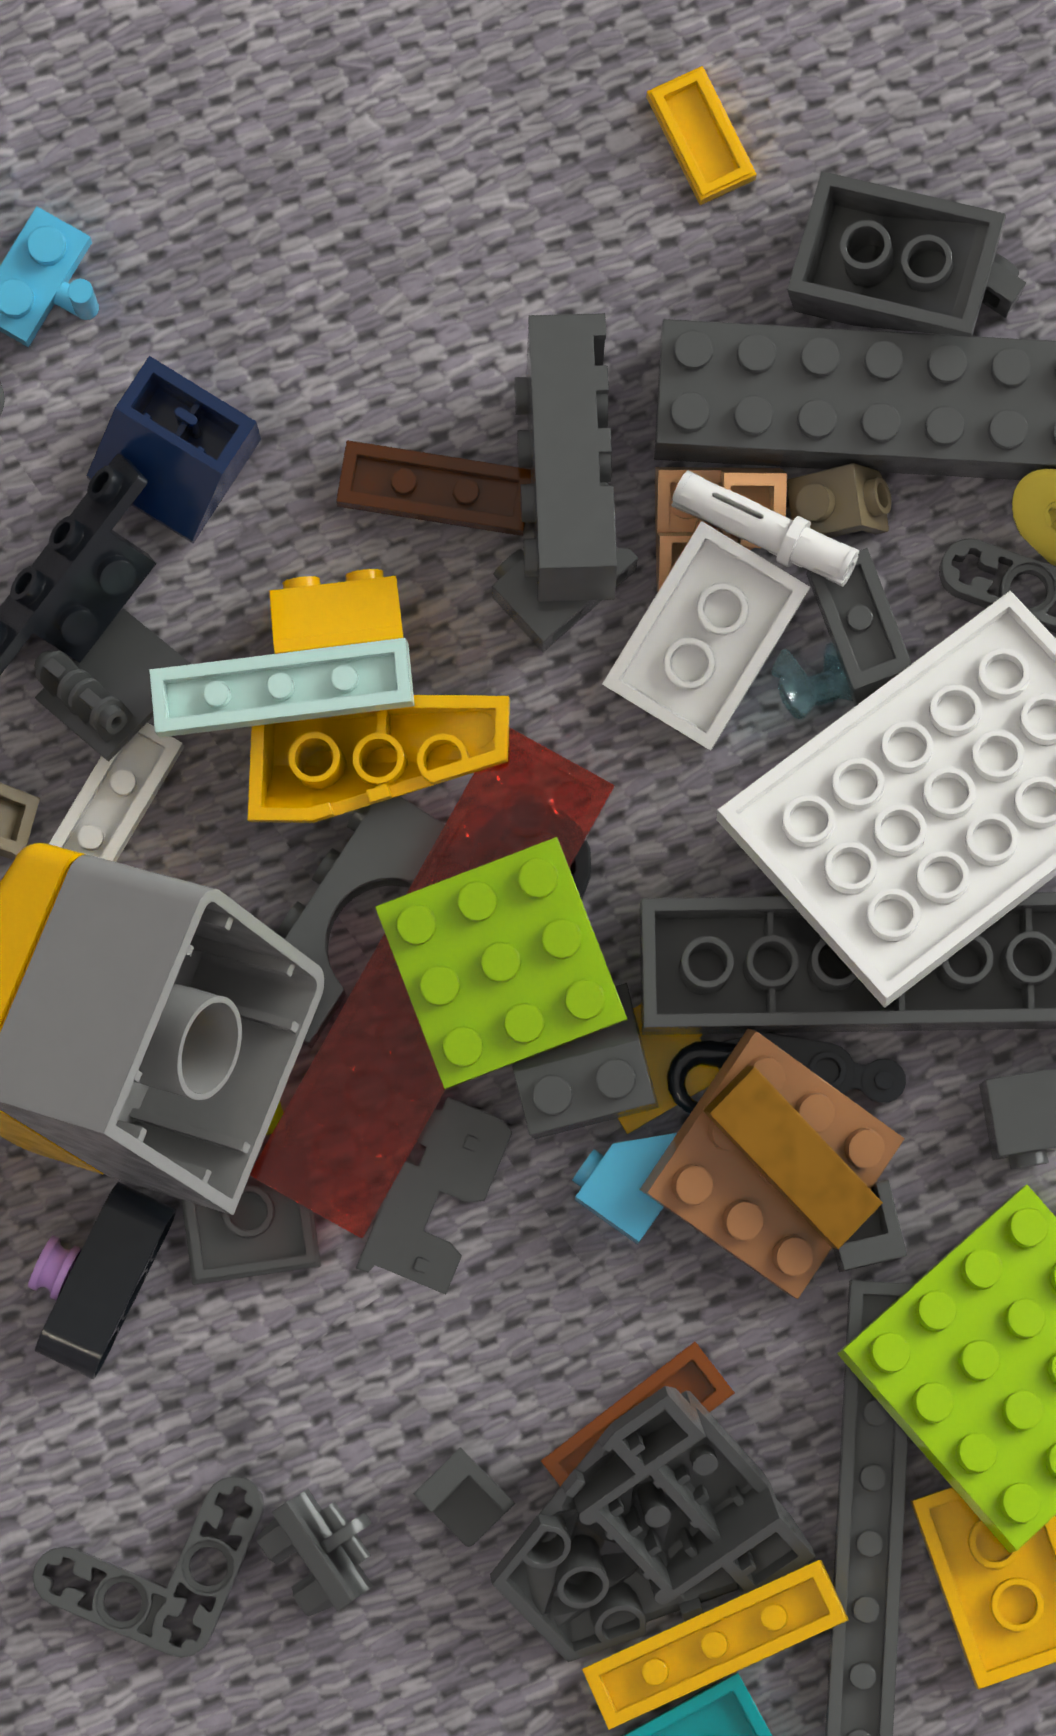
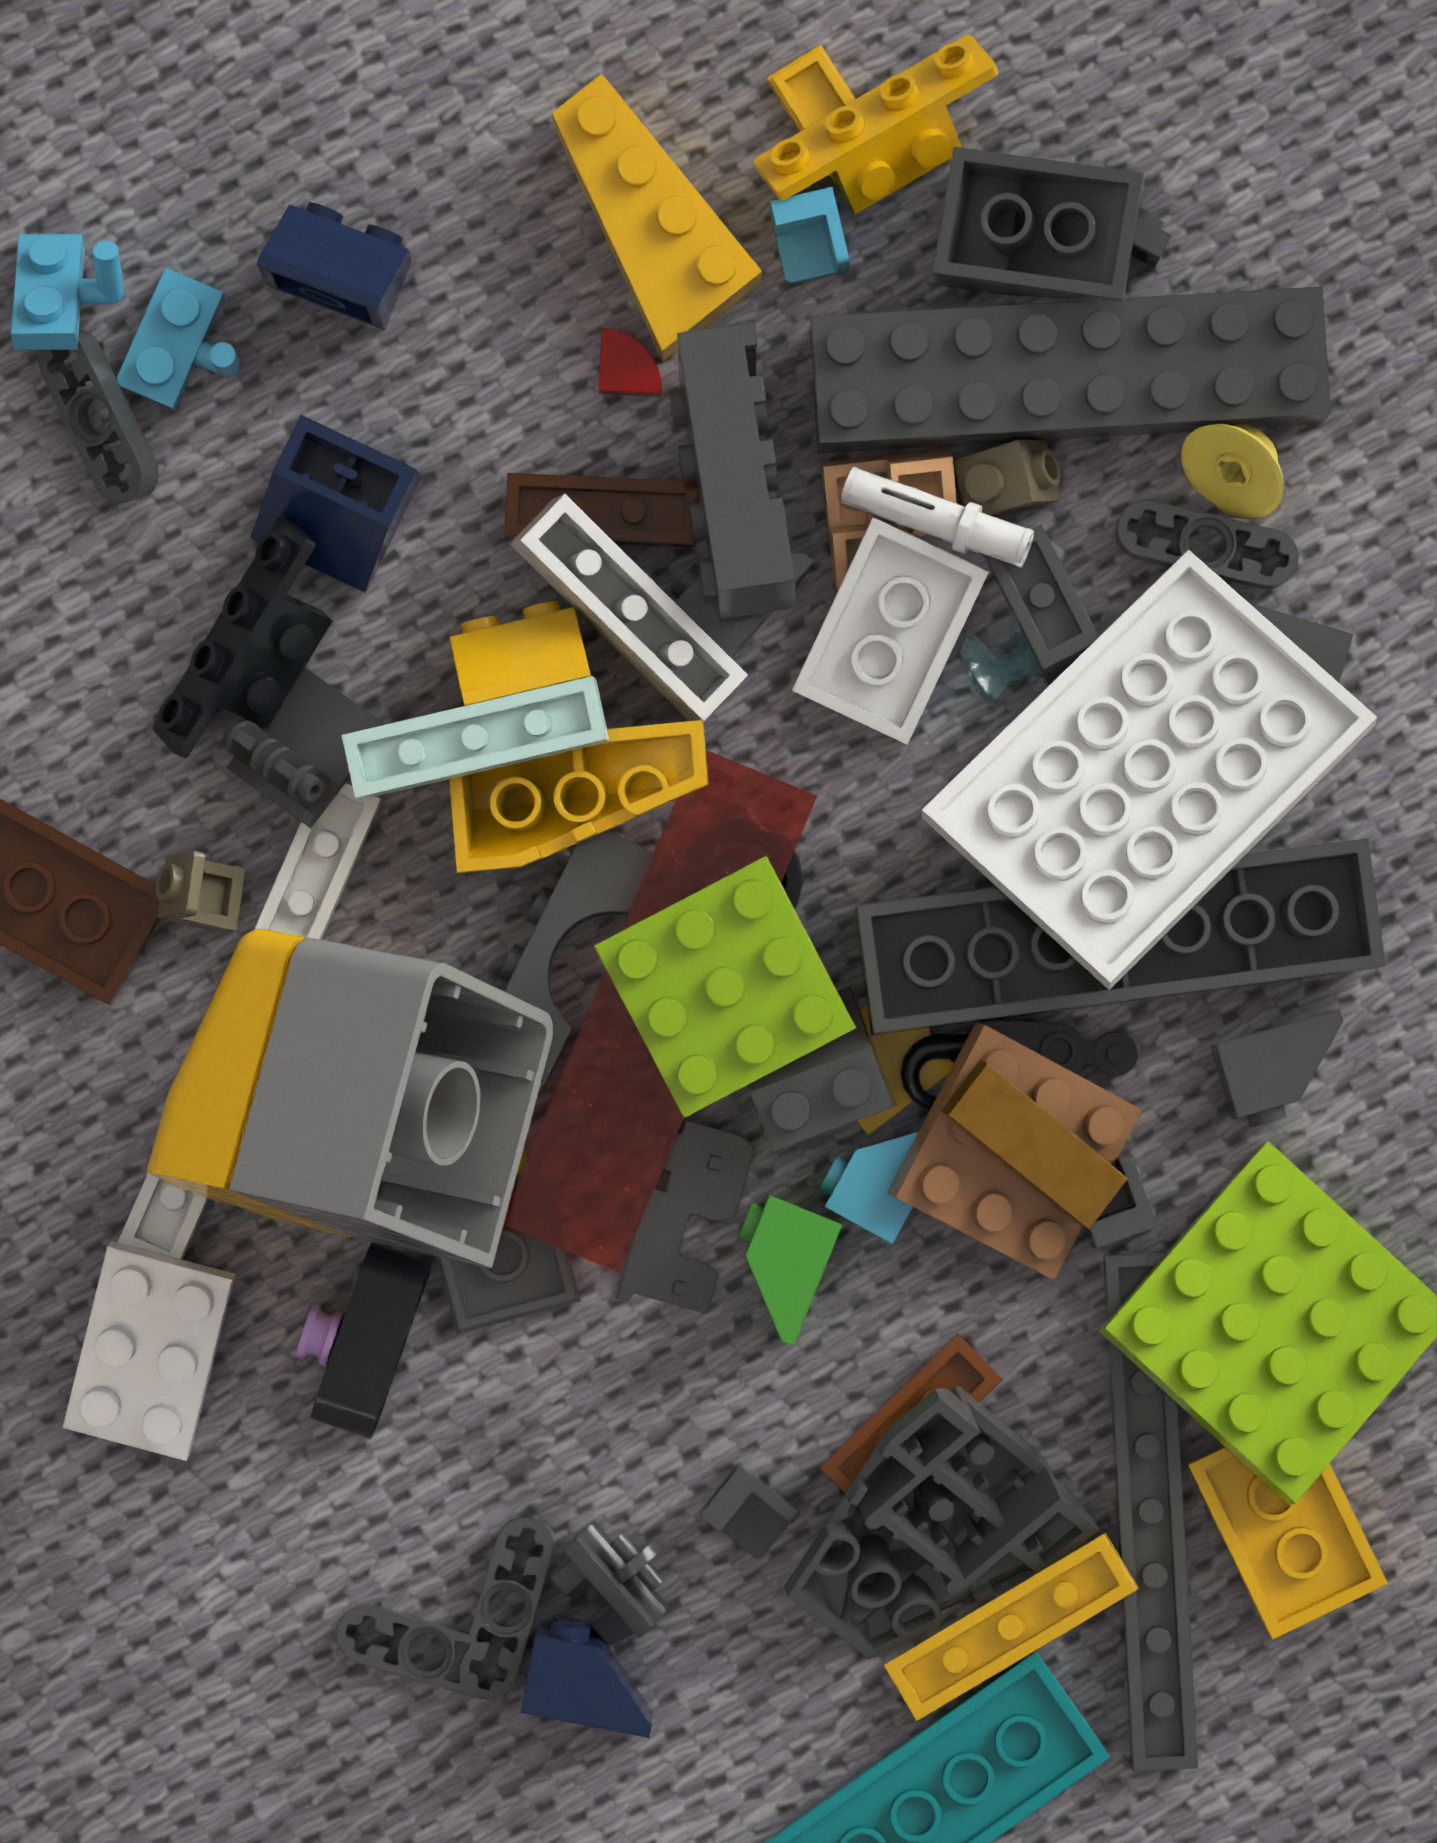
camera: 10 degrees left, 5 degrees up
(202, 221) = (335, 264): none -> dark blue slope
(273, 1647) = (582, 1681): none -> dark blue slope
(449, 582) = (628, 609): none -> white brick
(476, 353) = (626, 366): none -> red tile
(520, 214) = (659, 228): none -> yellow wedge
(531, 1242) = (787, 1259): none -> bright green slope
(670, 246) = (809, 236): none -> medium azure panel
(755, 157) = (885, 133): none -> yellow bracket

